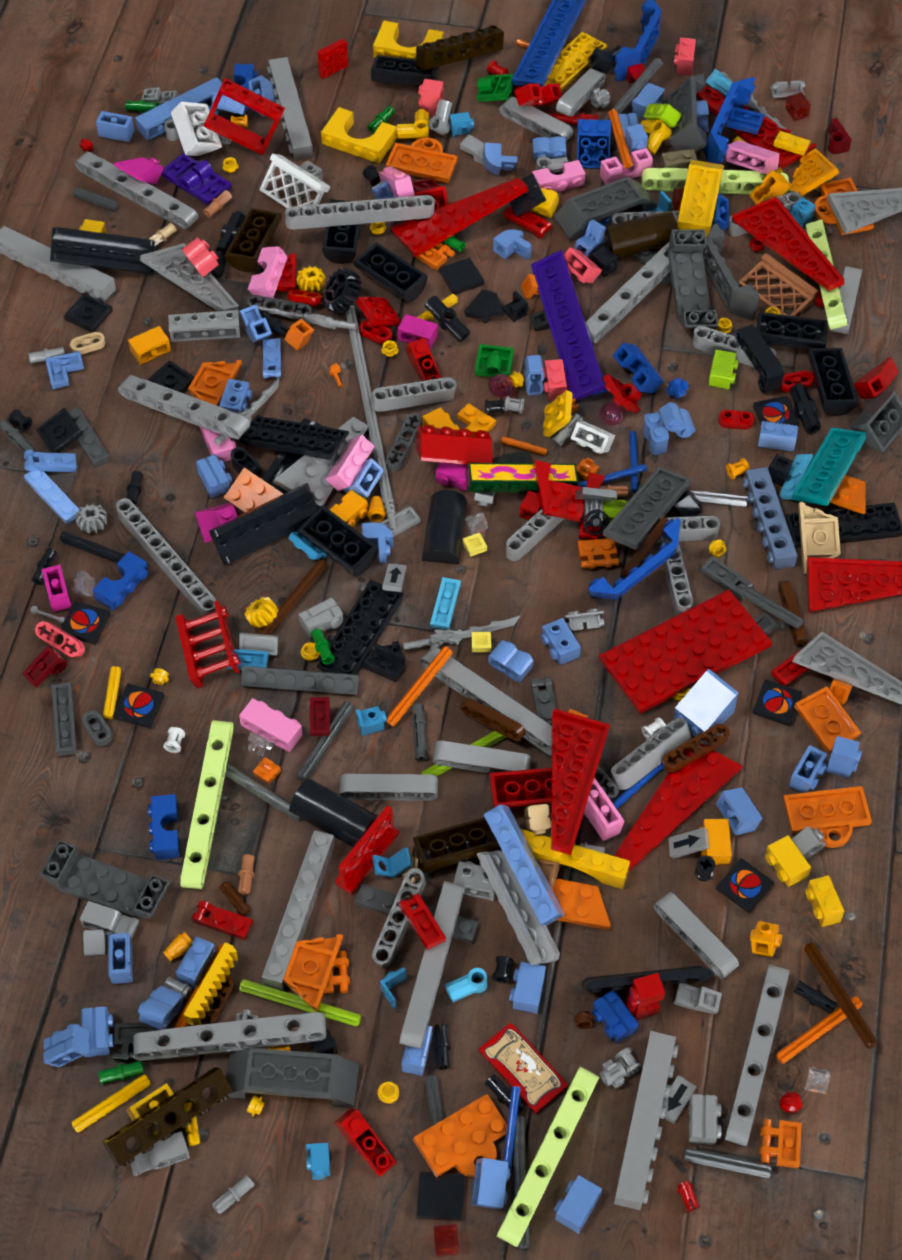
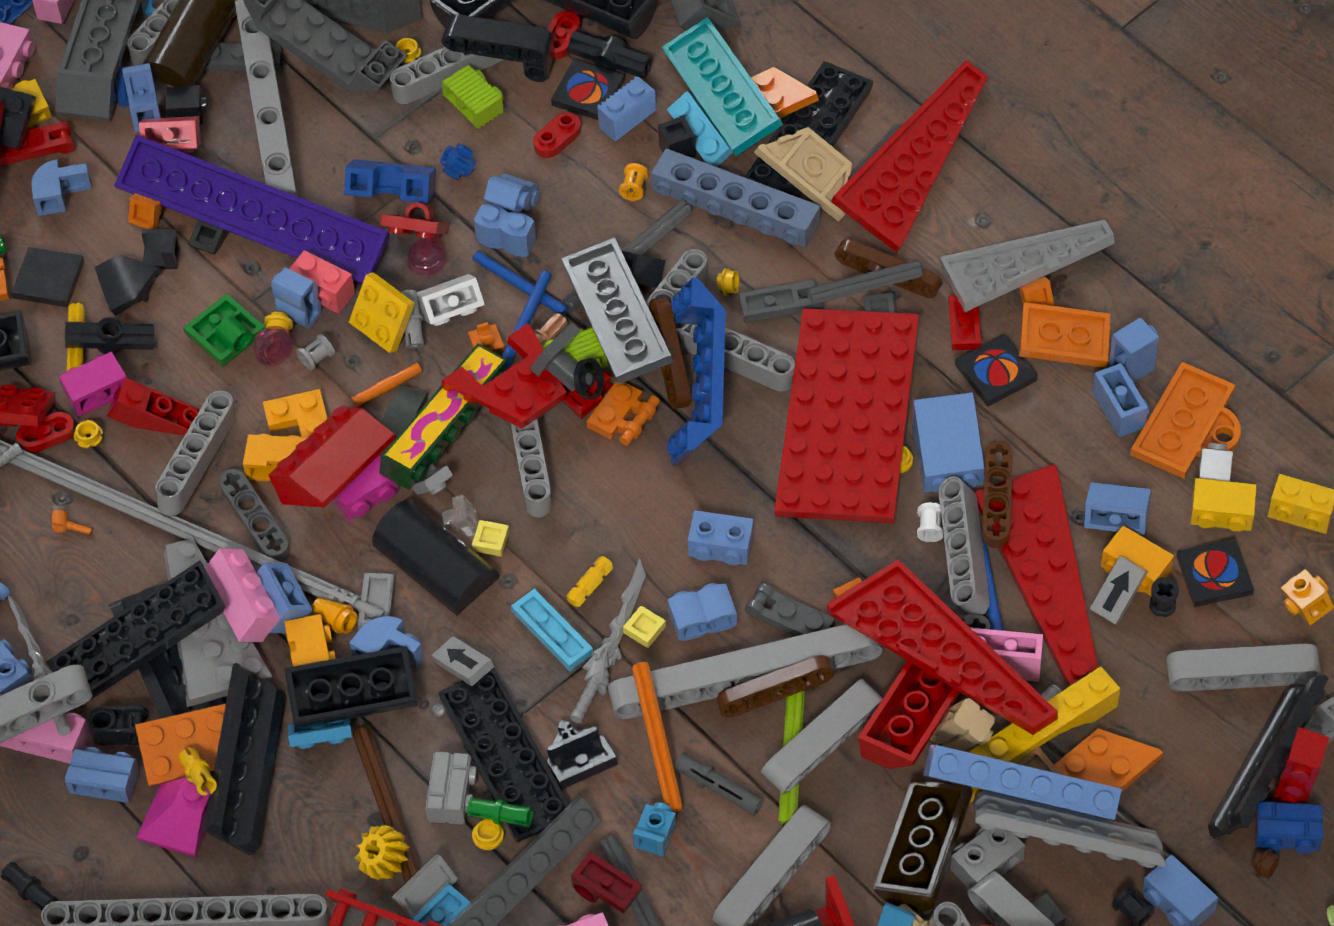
camera: 50 degrees left, 0 degrees up
(238, 507) = (197, 771): none -> yellow pin
(487, 602) = (589, 581): none -> yellow axle
(489, 406) = (297, 376): black bush -> none
(530, 505) = (494, 436): red panel -> none
(592, 619) = (714, 482): light grey hinge -> none

